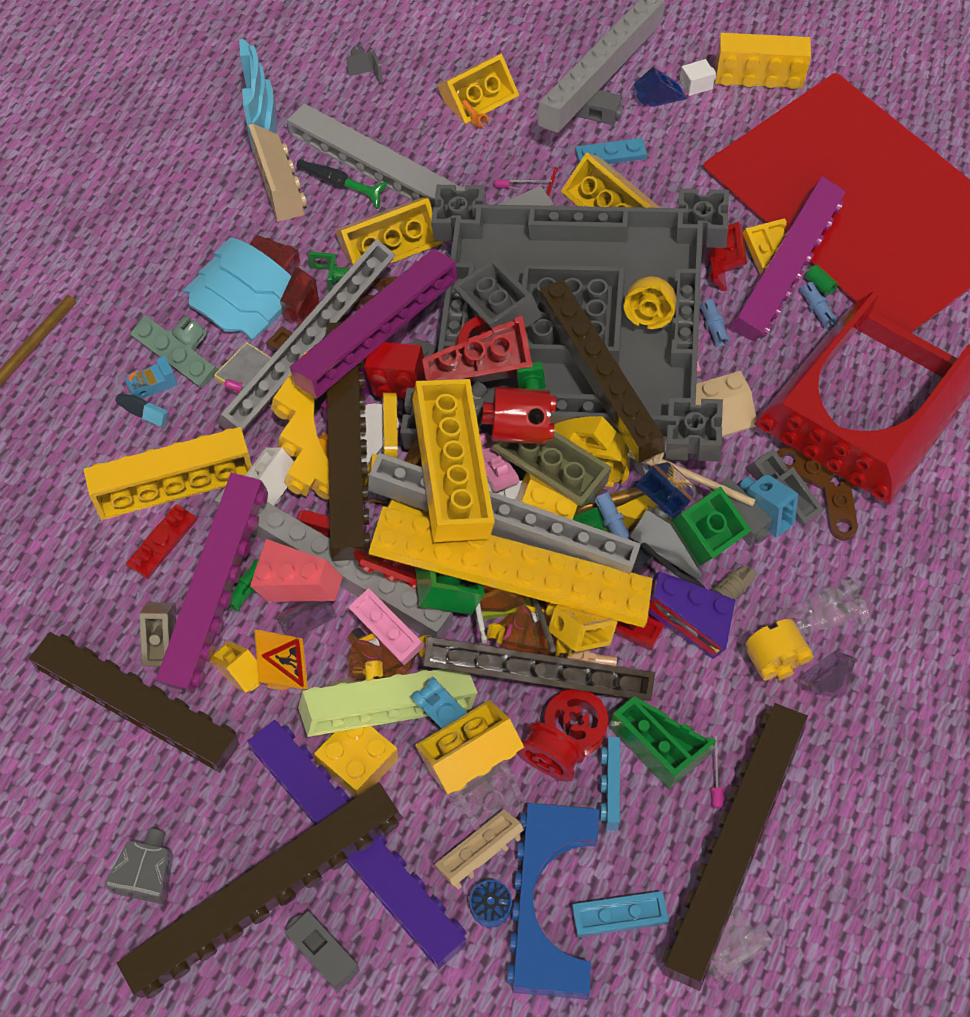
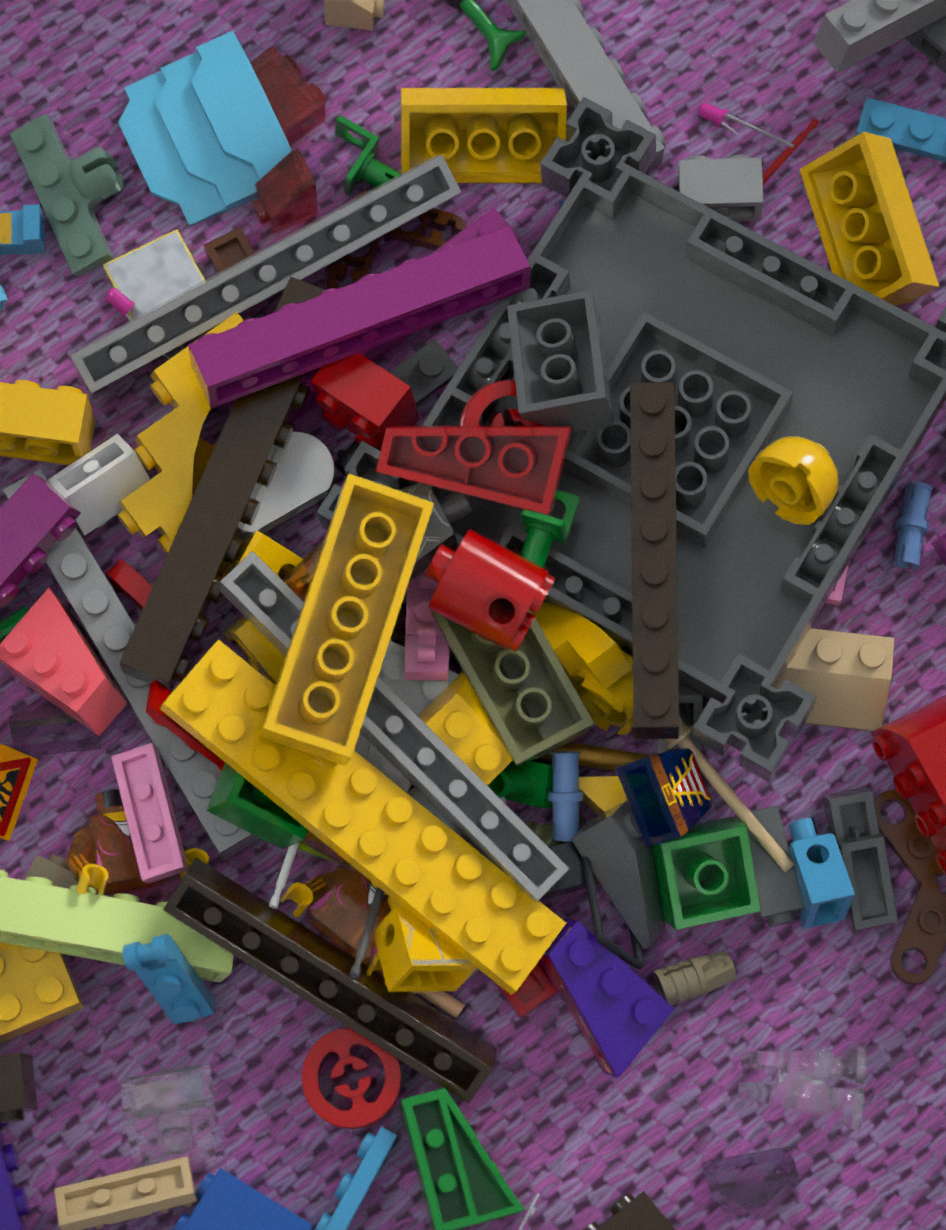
camera: 20 degrees right, 15 degrees up
(389, 424) = (309, 489): yellow beam -> none
(469, 746) = (174, 1052): yellow brick -> none
(551, 751) = (288, 1110): red wheel -> none
(778, 650) = (694, 1115): yellow brick -> none

